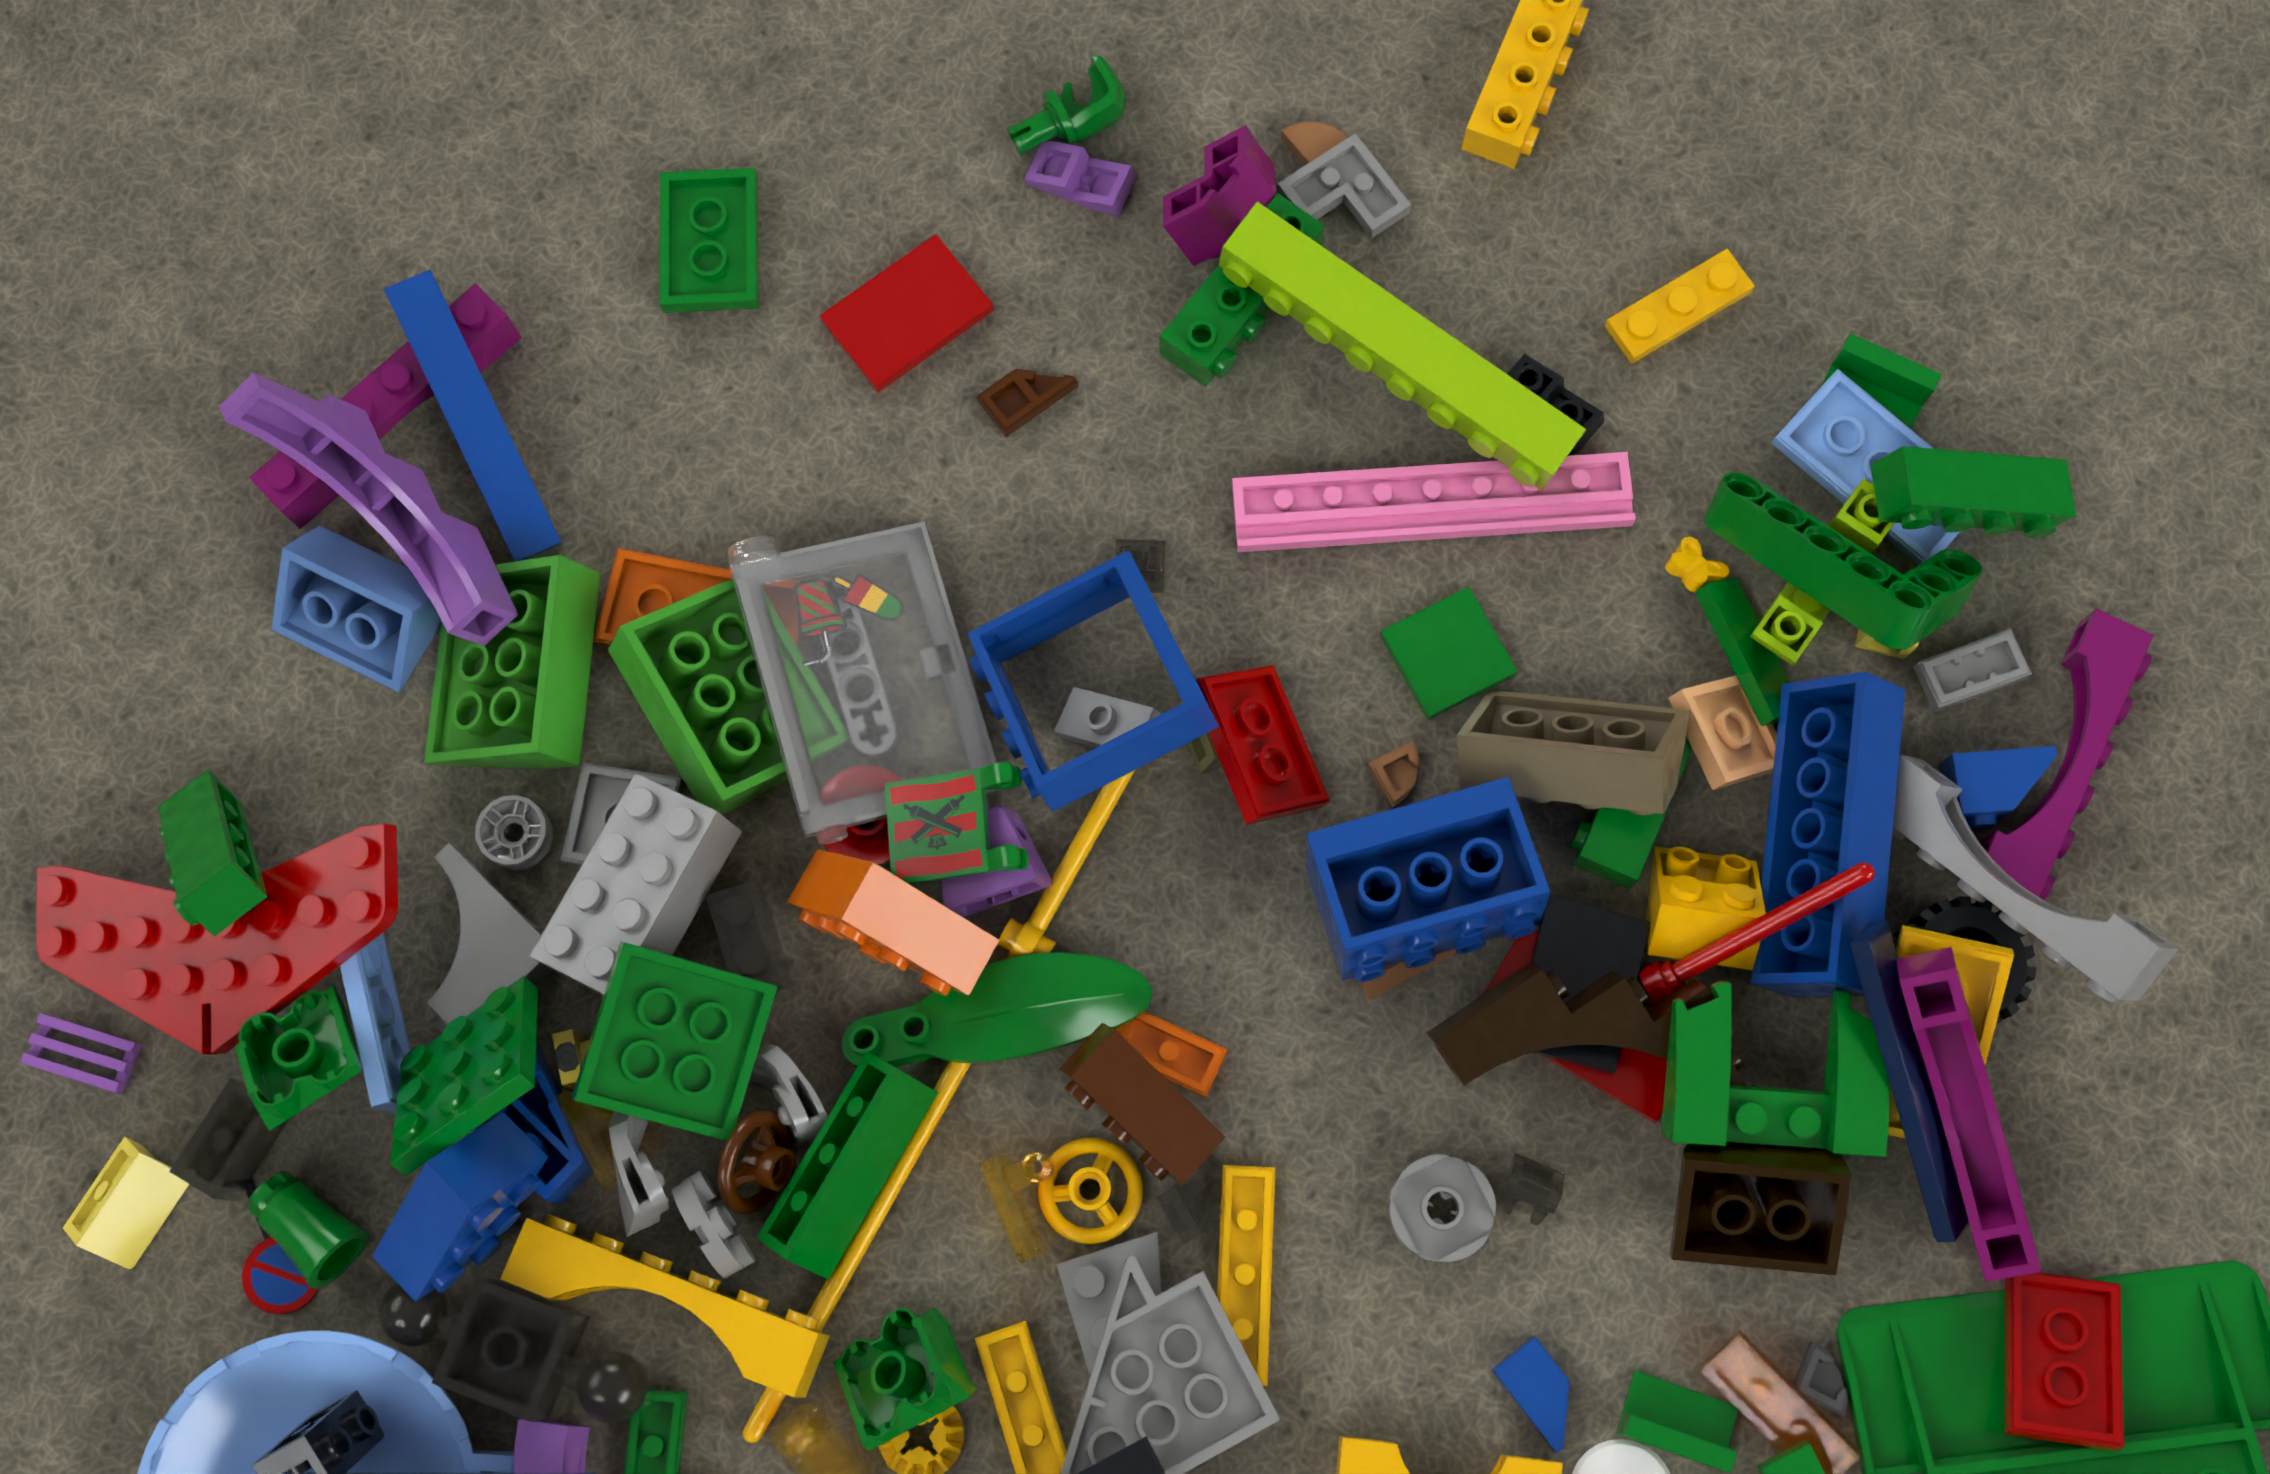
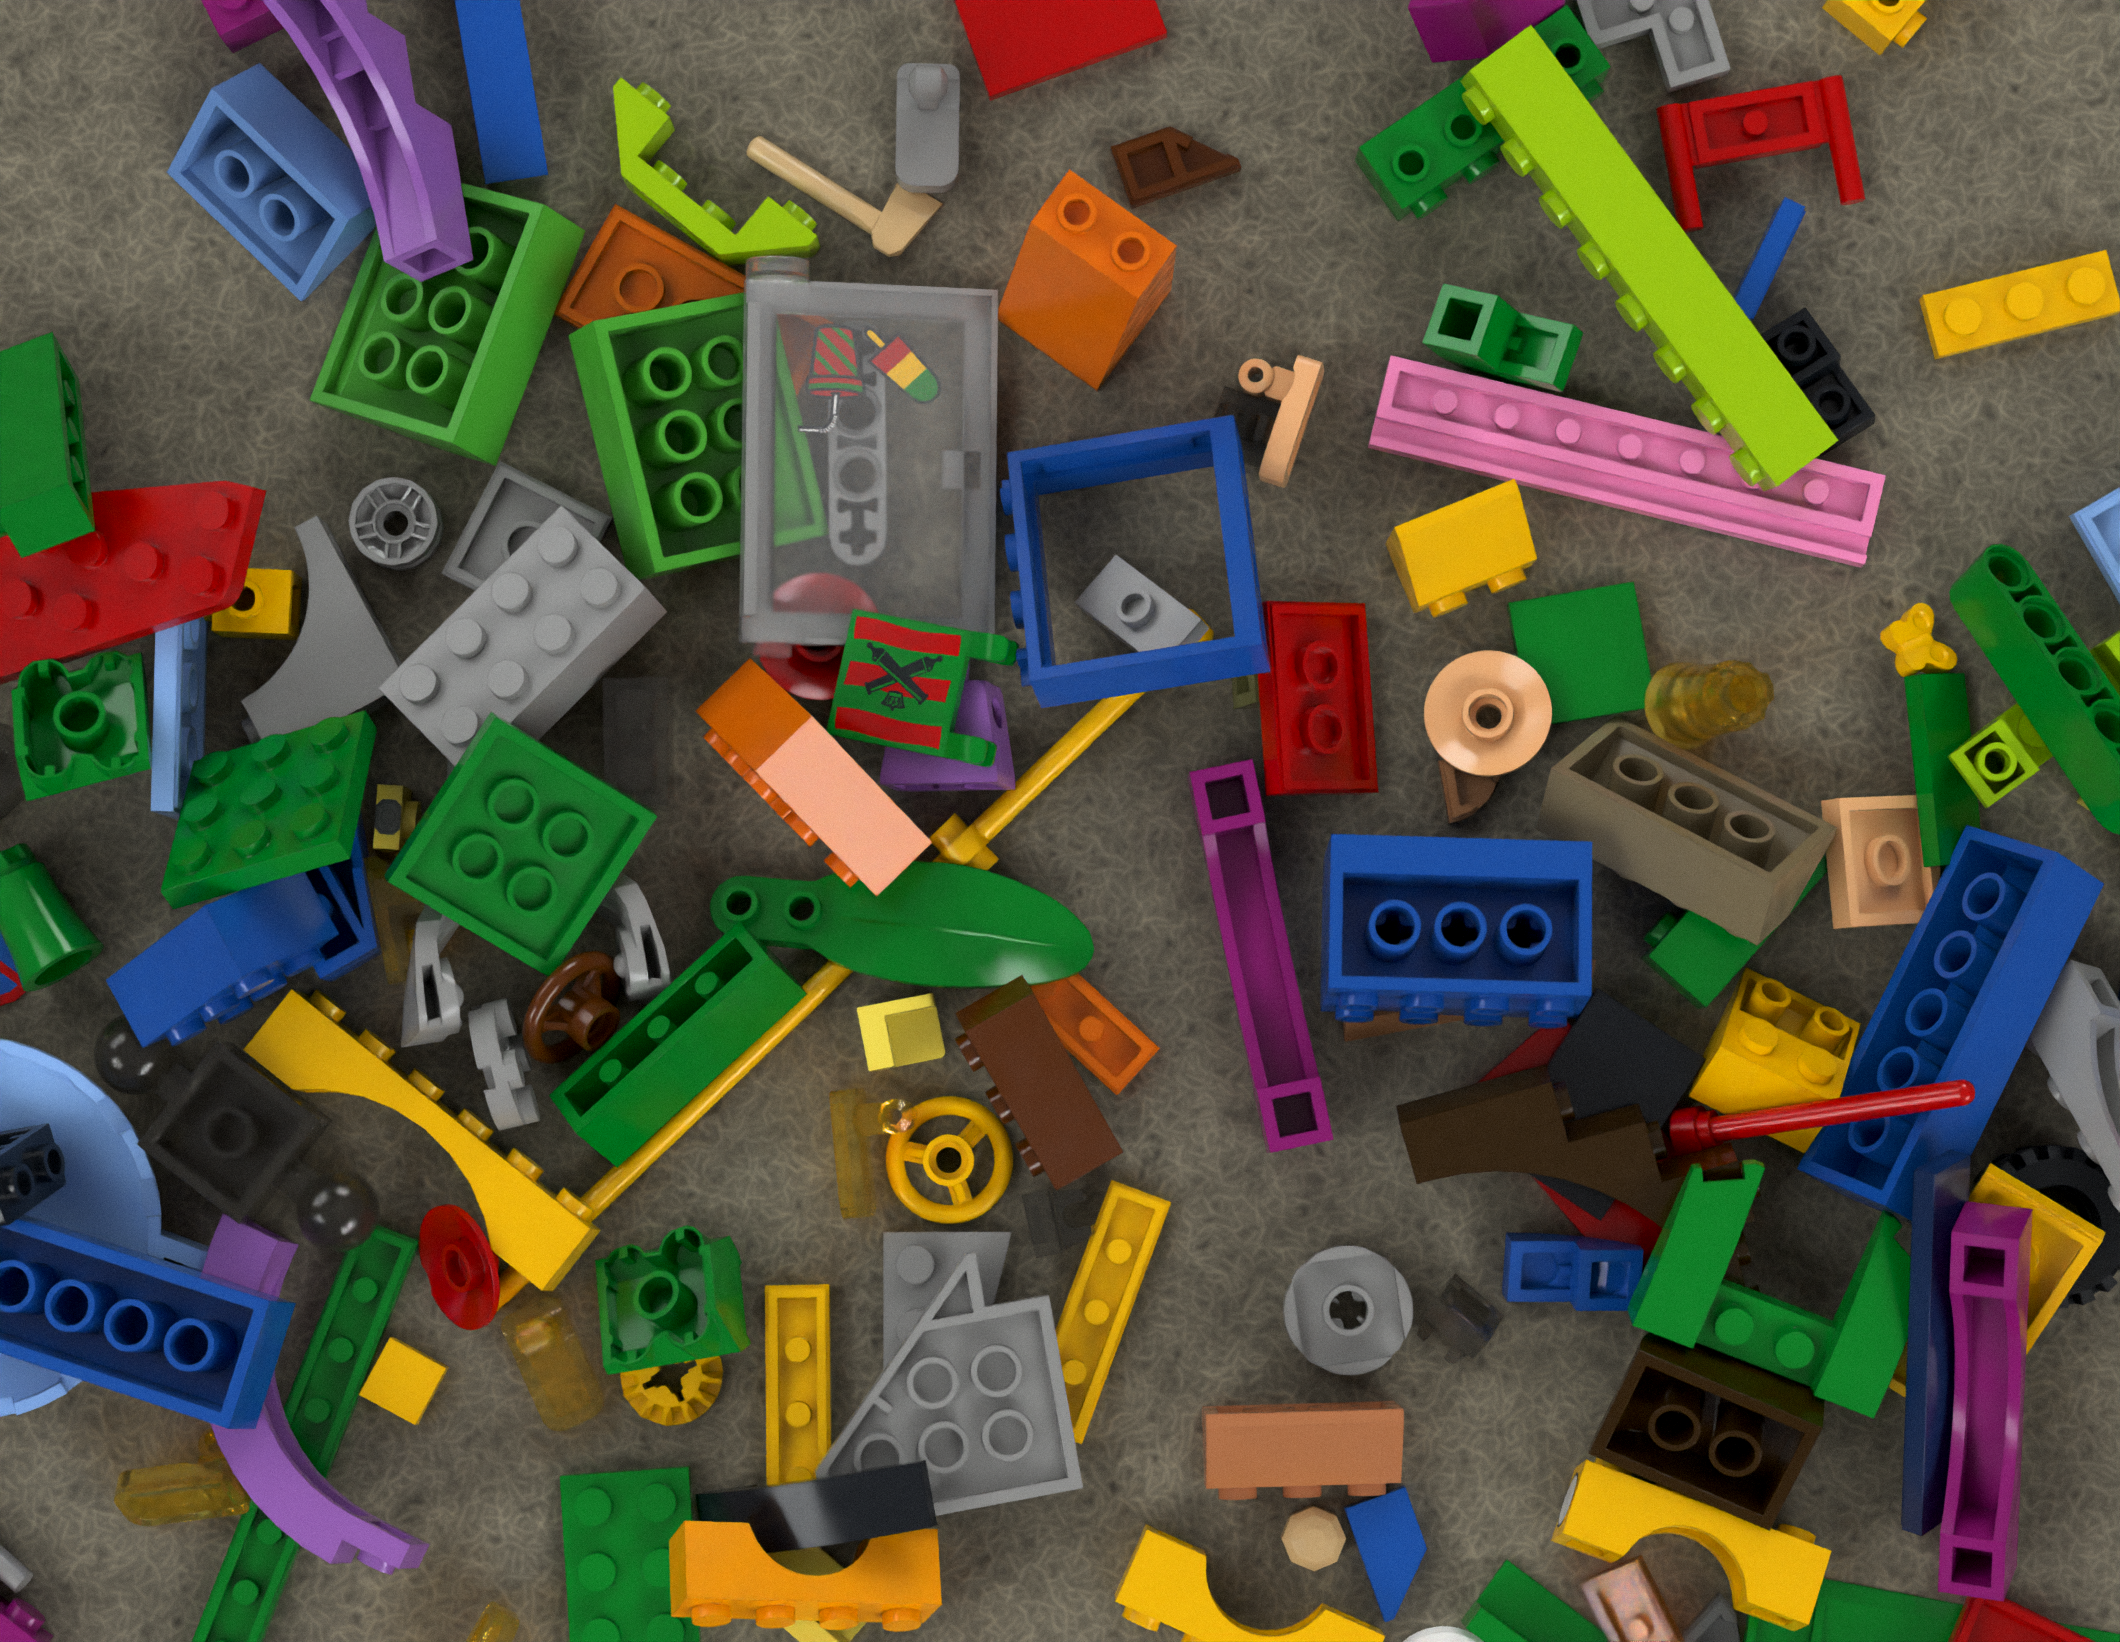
camera: 15 degrees right, 10 degrees up
(422, 928) = (265, 608): none -> yellow brick
(624, 489) = (641, 133): none -> lime slope
(723, 1401) = (459, 1266): none -> red dish
(832, 504) = (889, 230): none -> tan piece
(836, 423) = (927, 127): none -> light grey piece
(987, 482) = (1086, 280): none -> orange slope
(1021, 1100) = (901, 1032): none -> light yellow panel
(1172, 529) = (1297, 395): none -> light nougat piece
(1280, 954) = (1259, 956): none -> magenta arch
(1298, 442) = (1499, 342): none -> green brick
(1333, 597) = (1462, 549): none -> yellow slope
(1391, 692) = (1482, 682): none -> light nougat dish
(1444, 1330) = (1302, 1448): none -> nougat slope
(1447, 239) = (1753, 128): none -> red plate
(1476, 1402) = (1313, 1537): none -> tan tile
(1486, 317) = (1768, 256): none -> blue tile
(1555, 652) = (1703, 701): none -> clear yellow plant
(1605, 1120) = (1571, 1269): none -> blue slope
(1845, 1309) = (1769, 1572): none -> yellow arch

